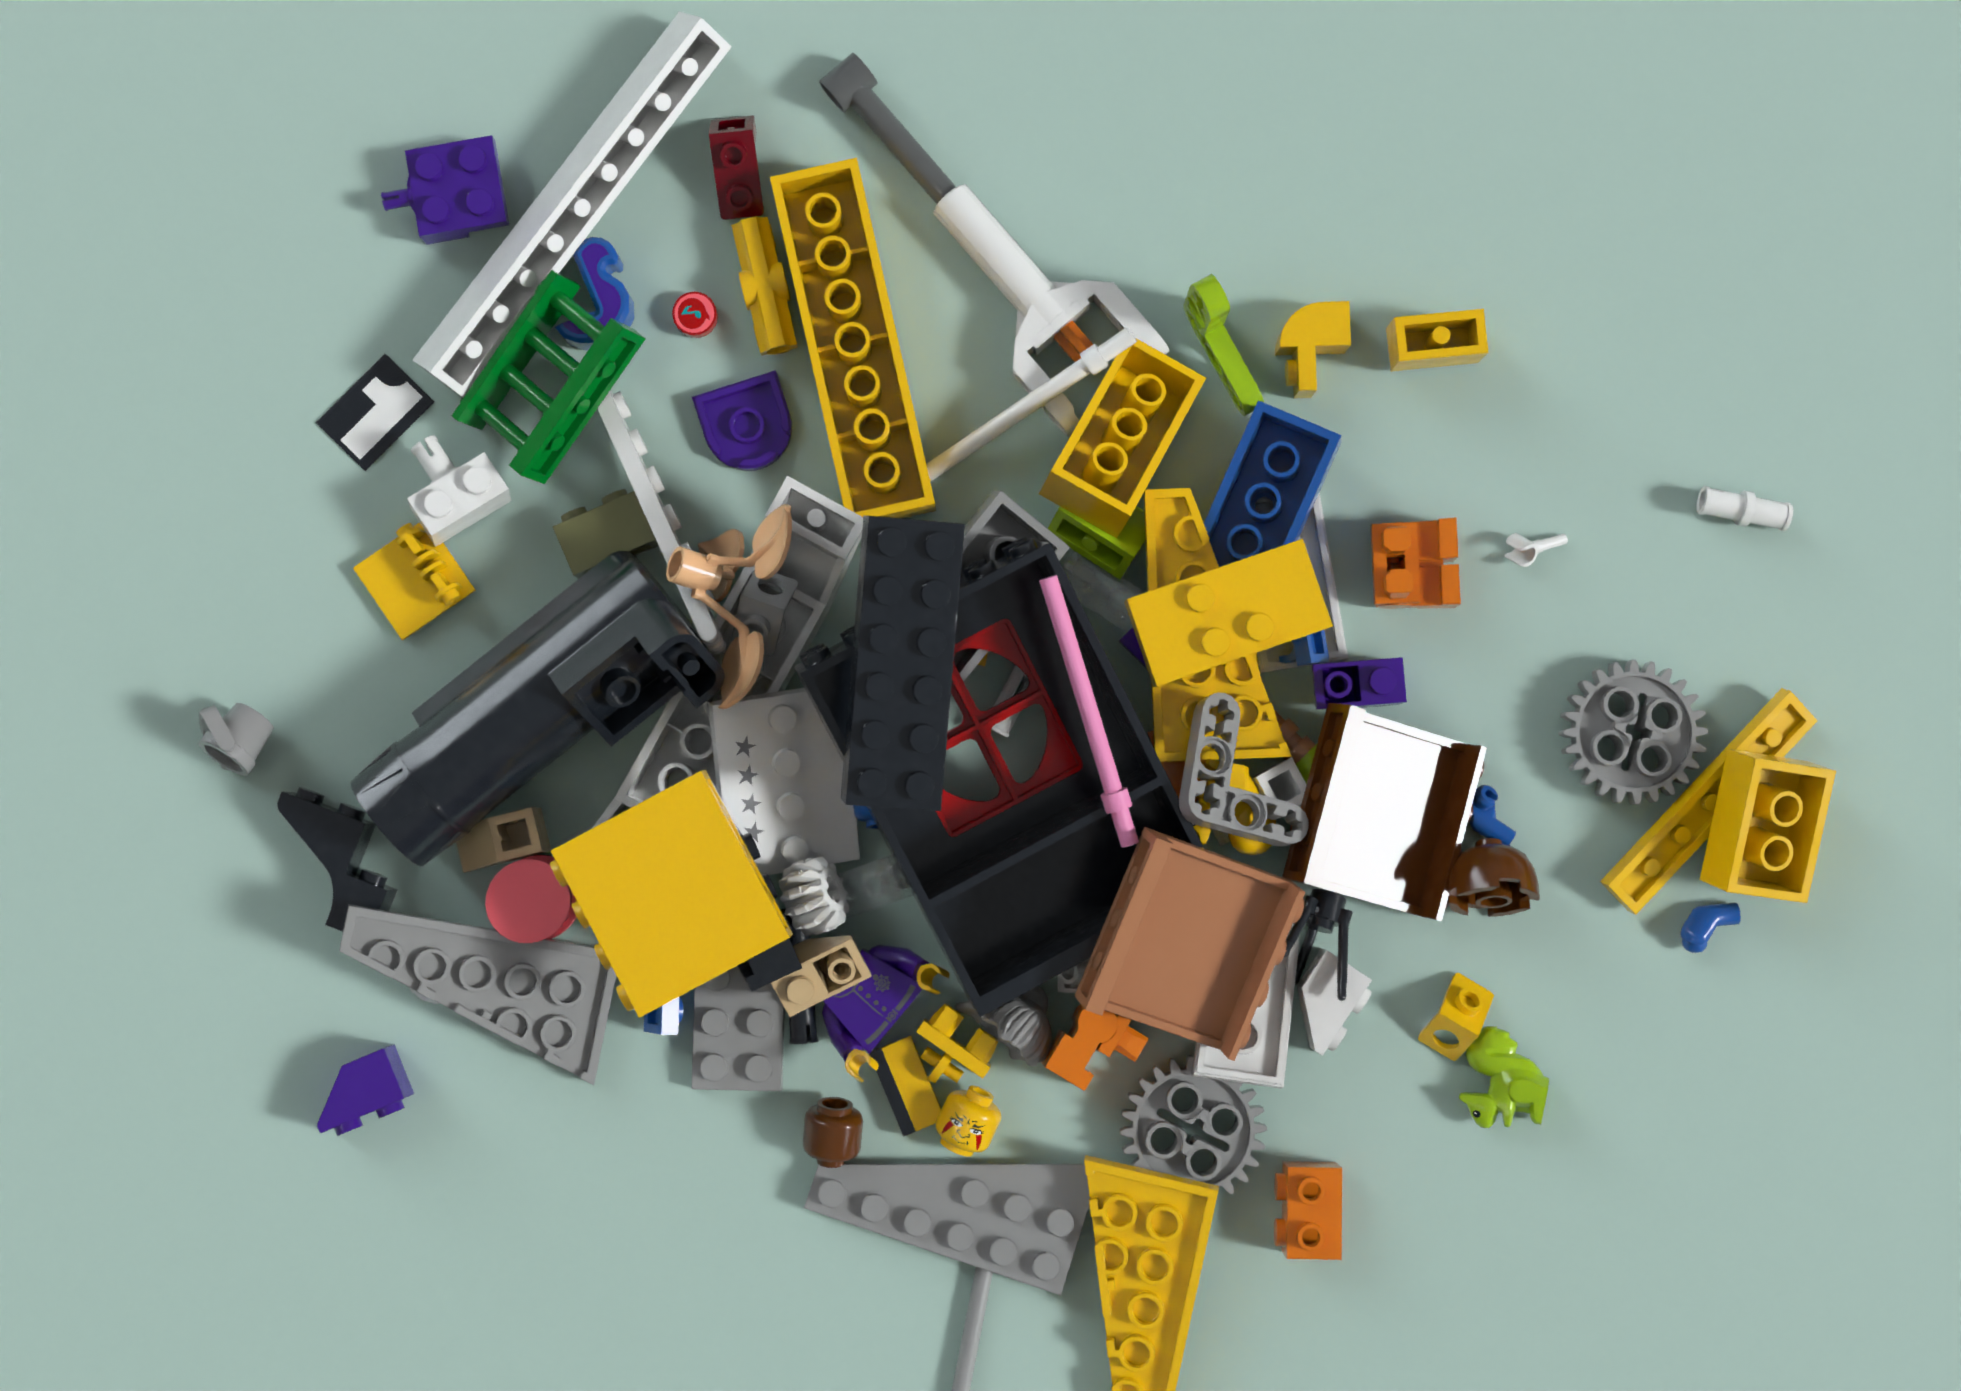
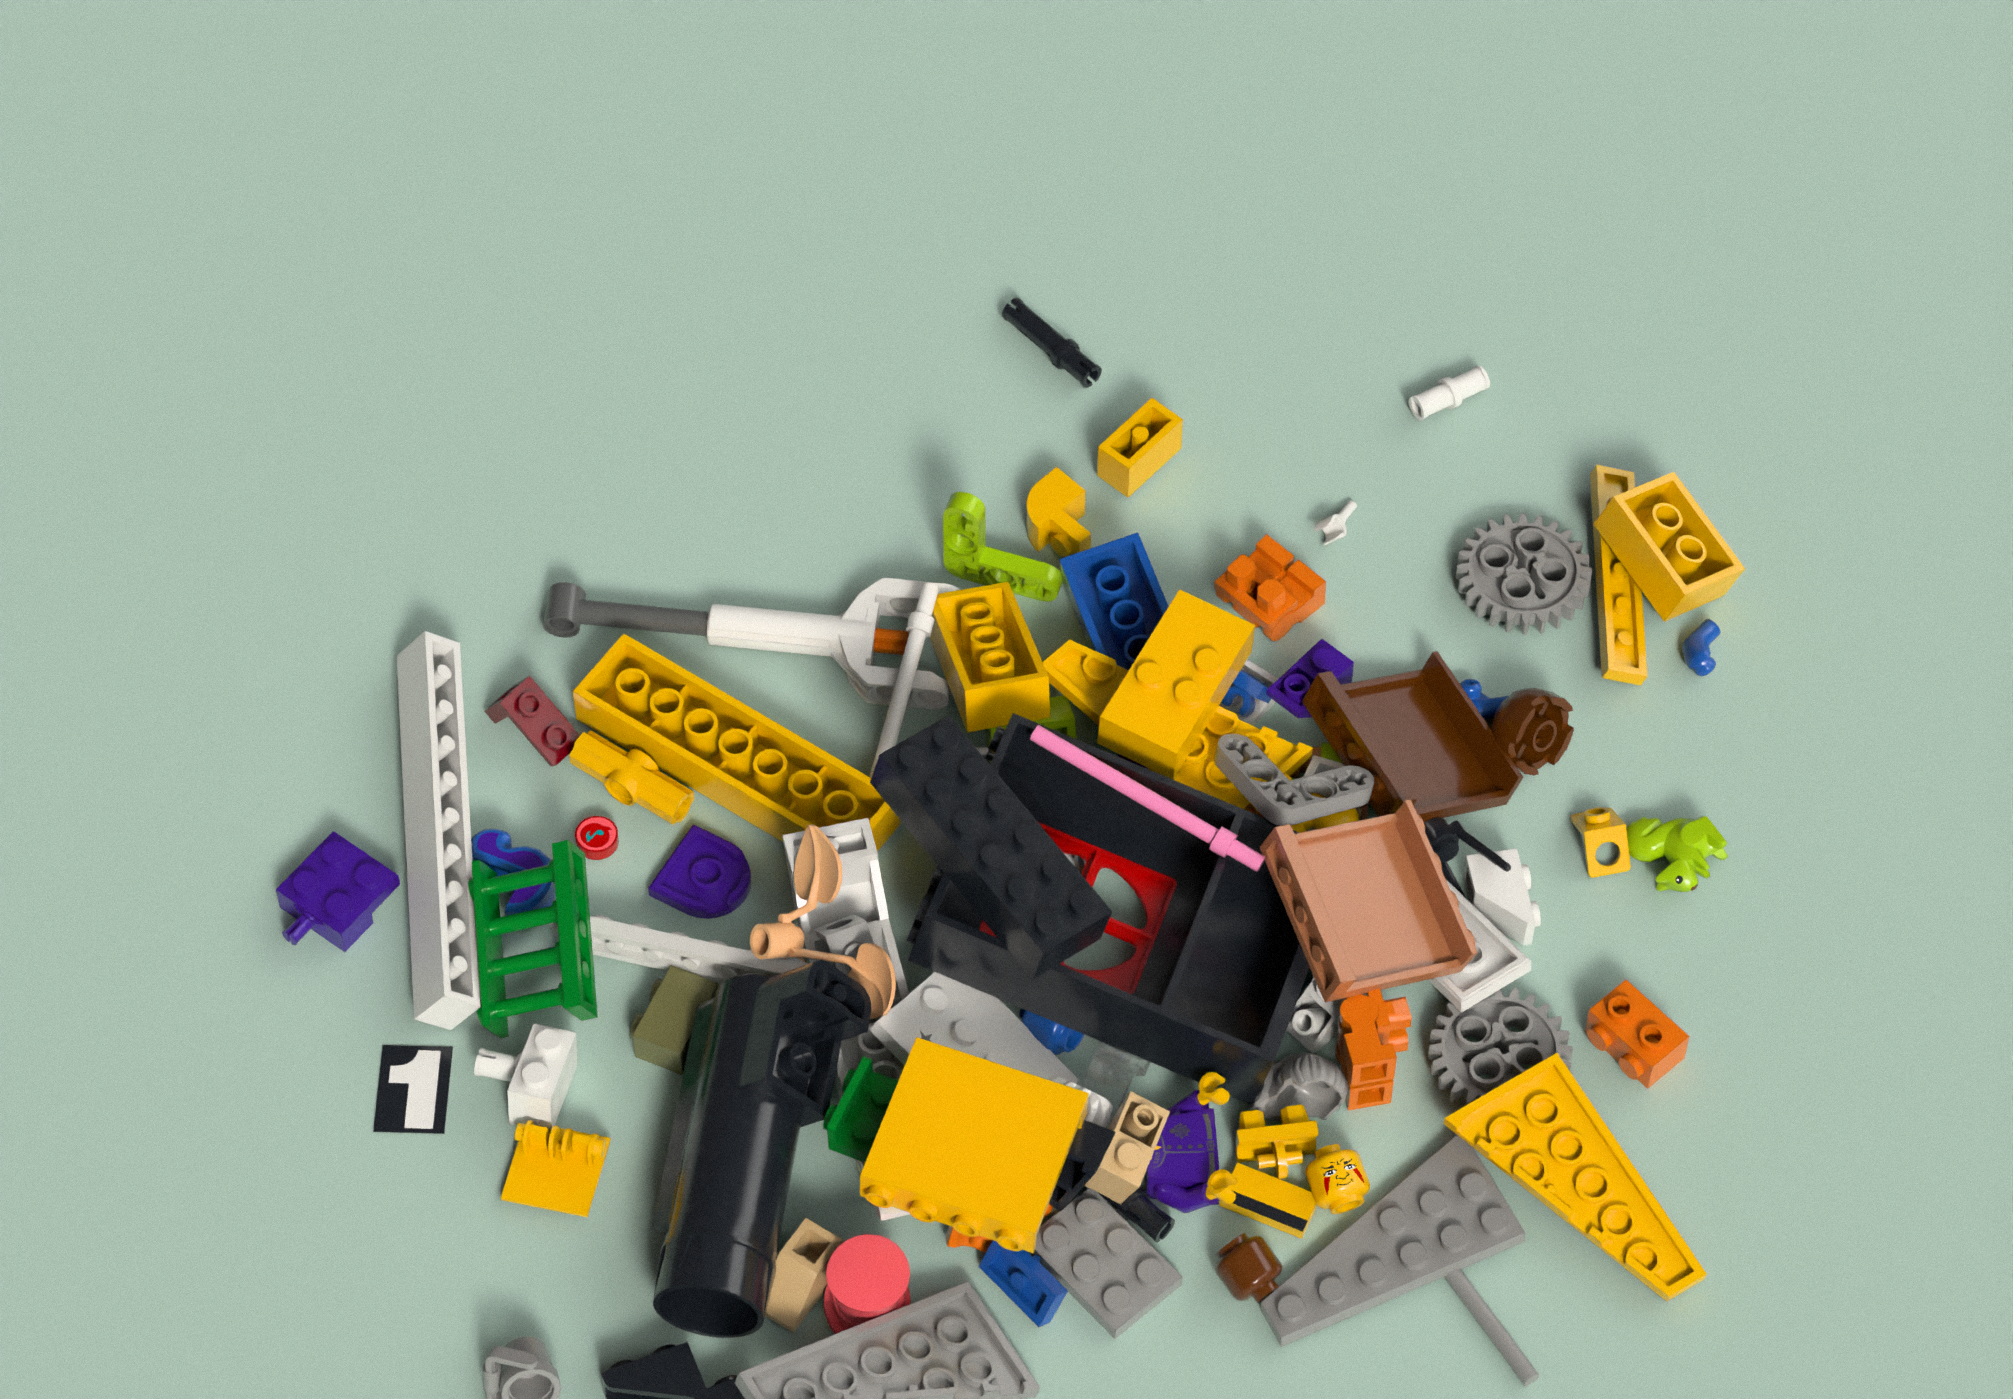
camera: 45 degrees left, 30 degrees down
(646, 767) = (860, 1112): none -> green bracket
(1468, 168) = (1063, 352): none -> black pin

